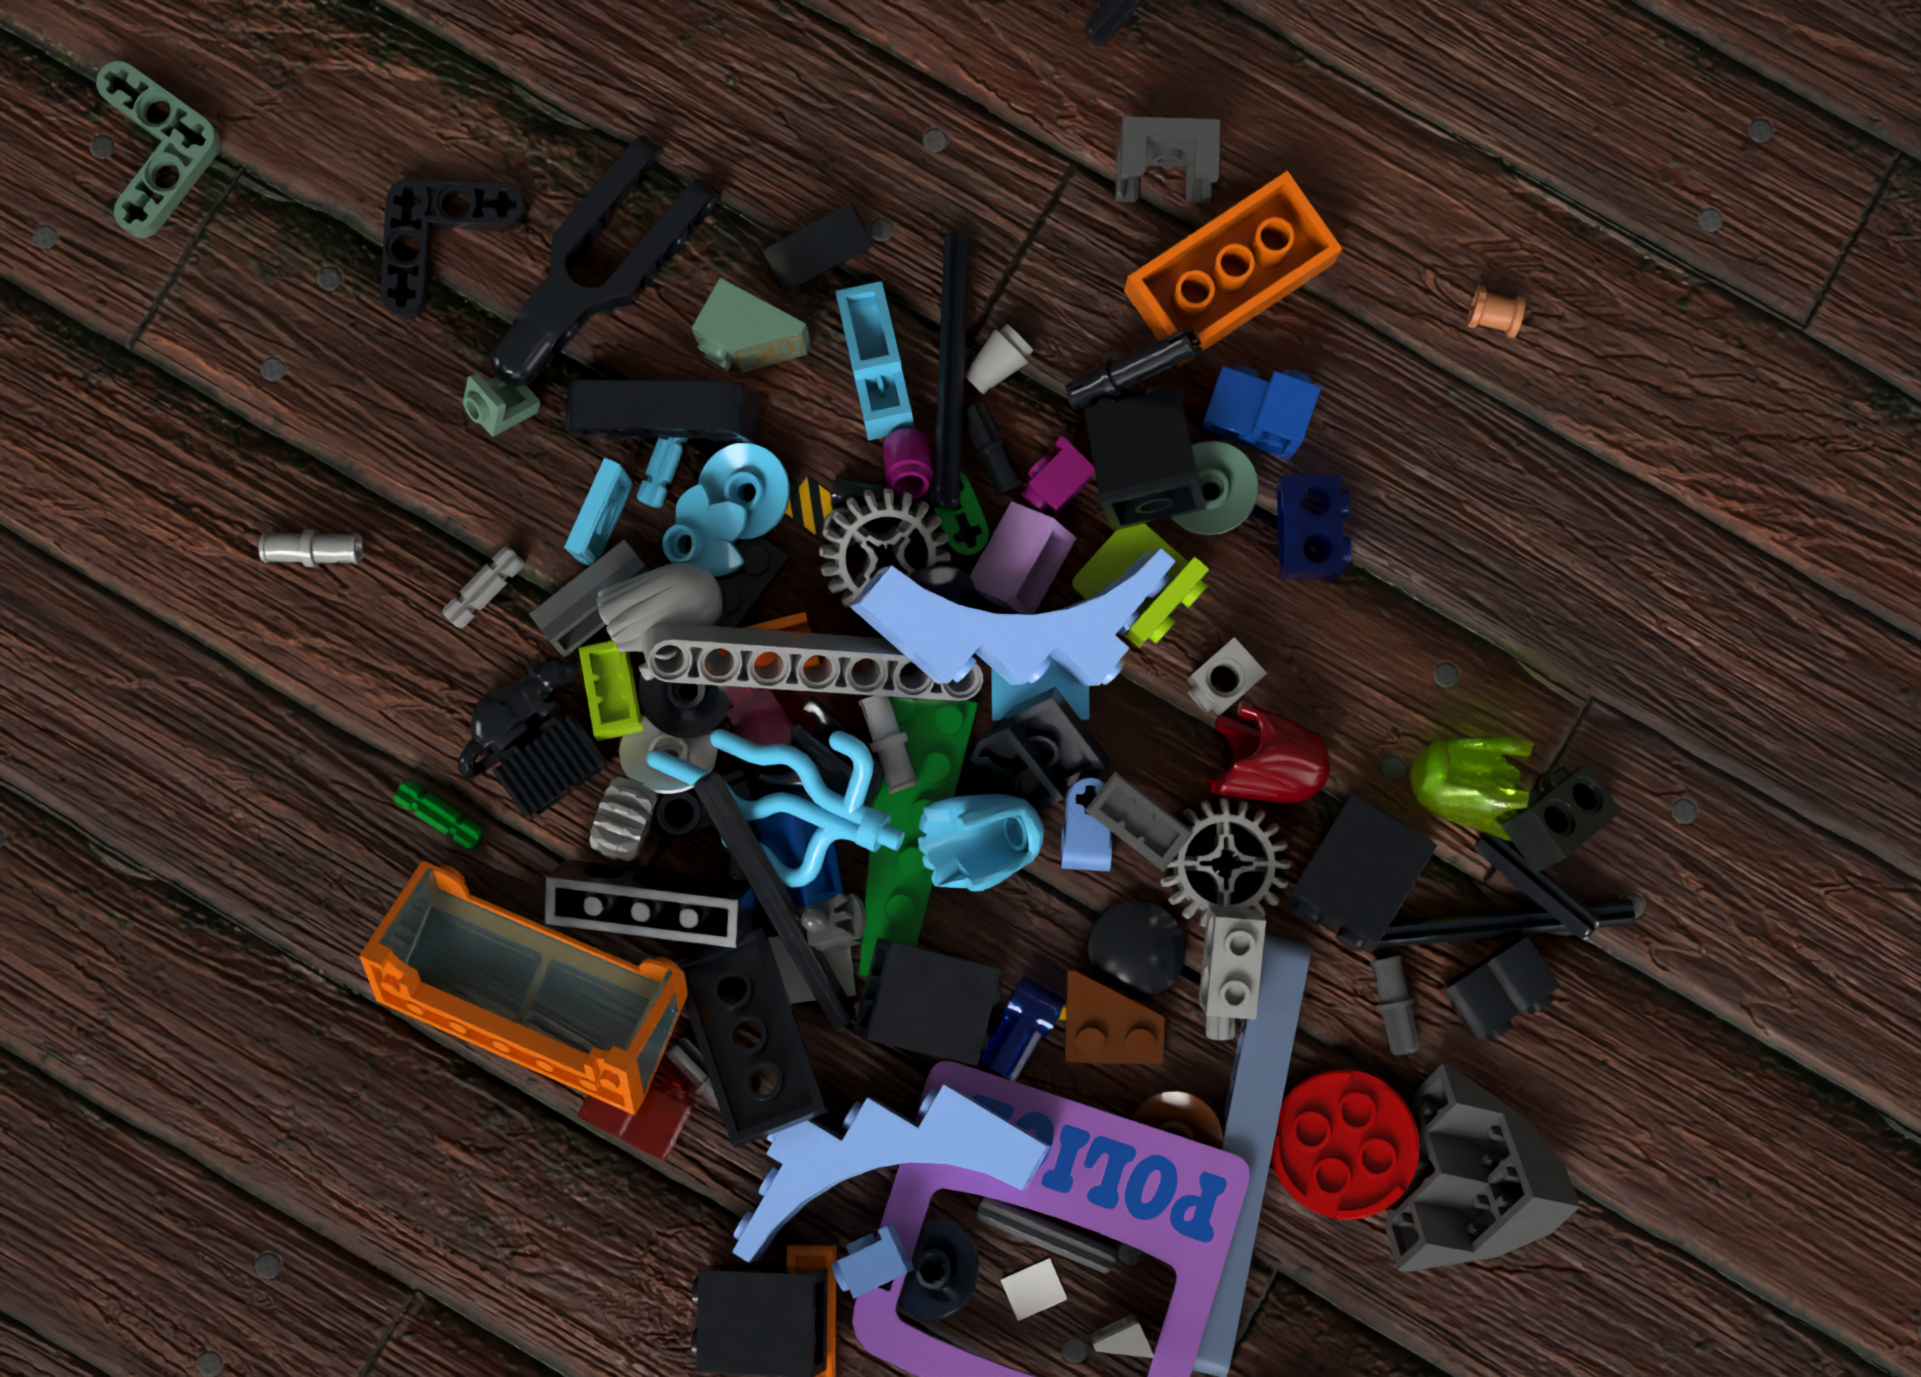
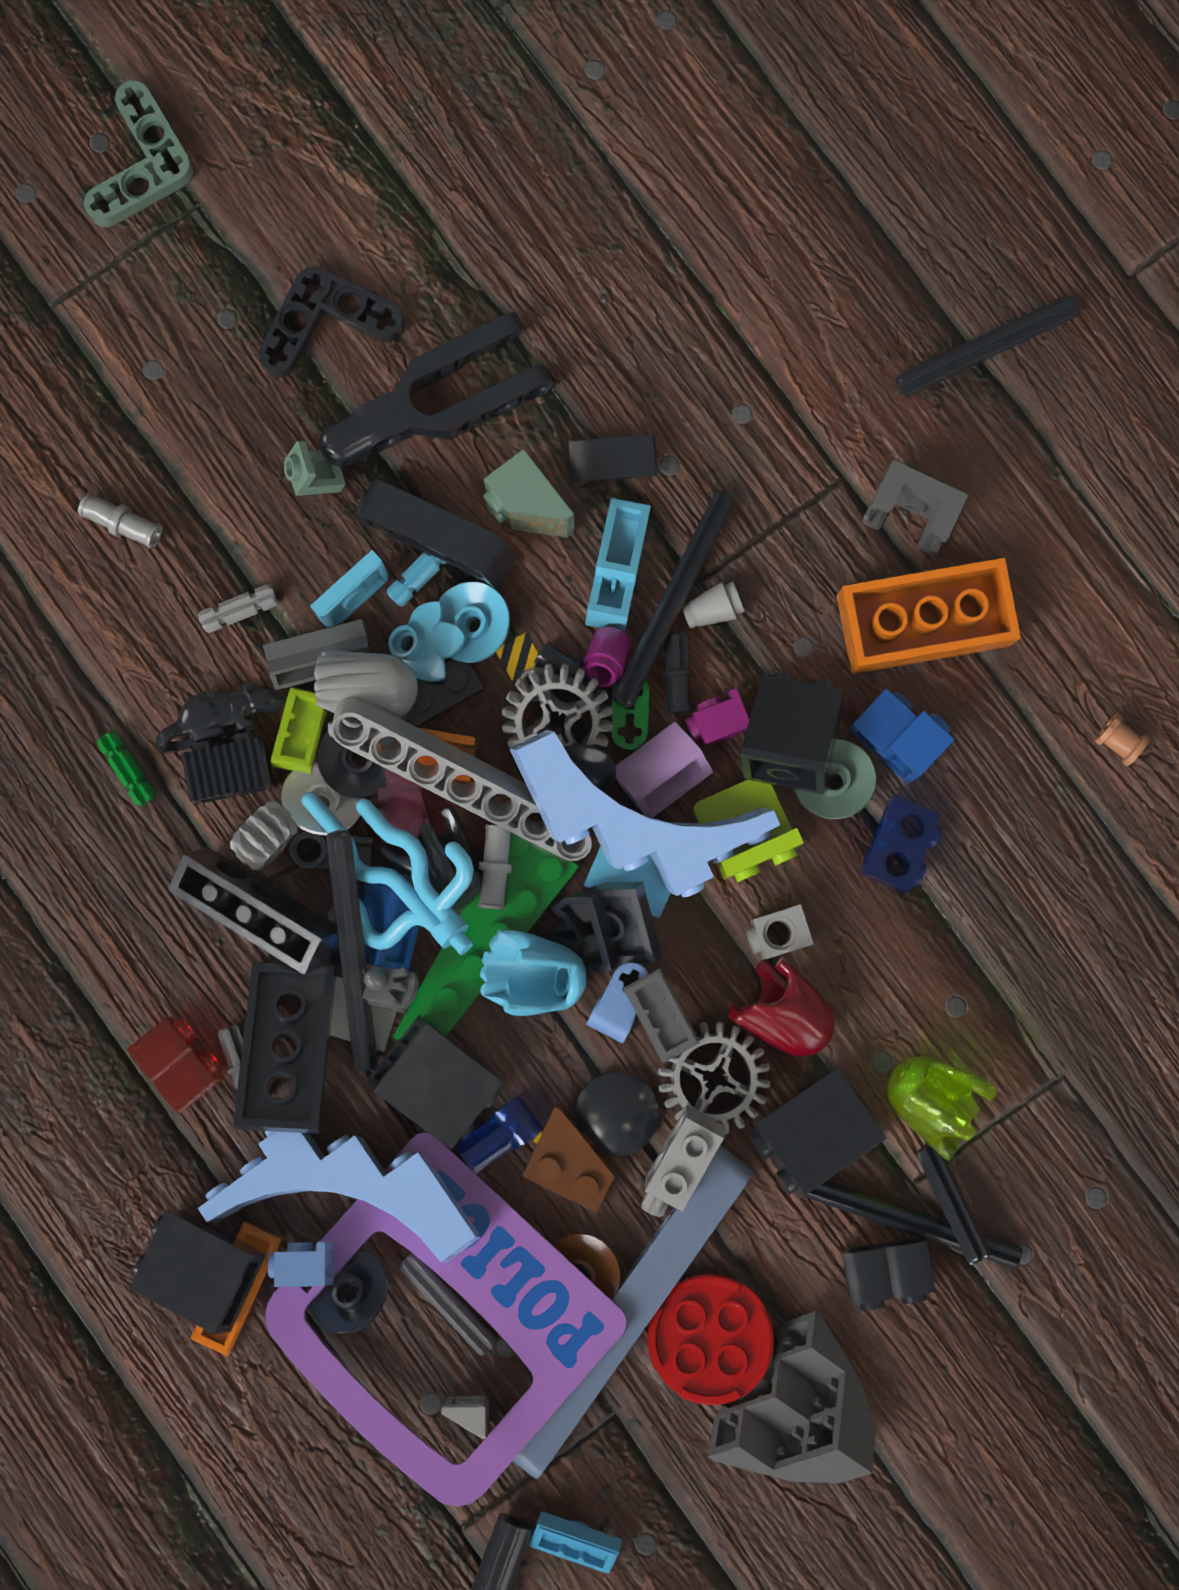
camera: 25 degrees right, 0 degrees up
(524, 989) = (130, 932): windscreen -> none
(1033, 1289) = (419, 1342): white sticker -> none
(1117, 376) = (799, 660): black pin -> none
(1395, 1005) = (799, 1248): dark grey axle -> none
(1560, 816) = (994, 1159): pearl dark grey brick -> none

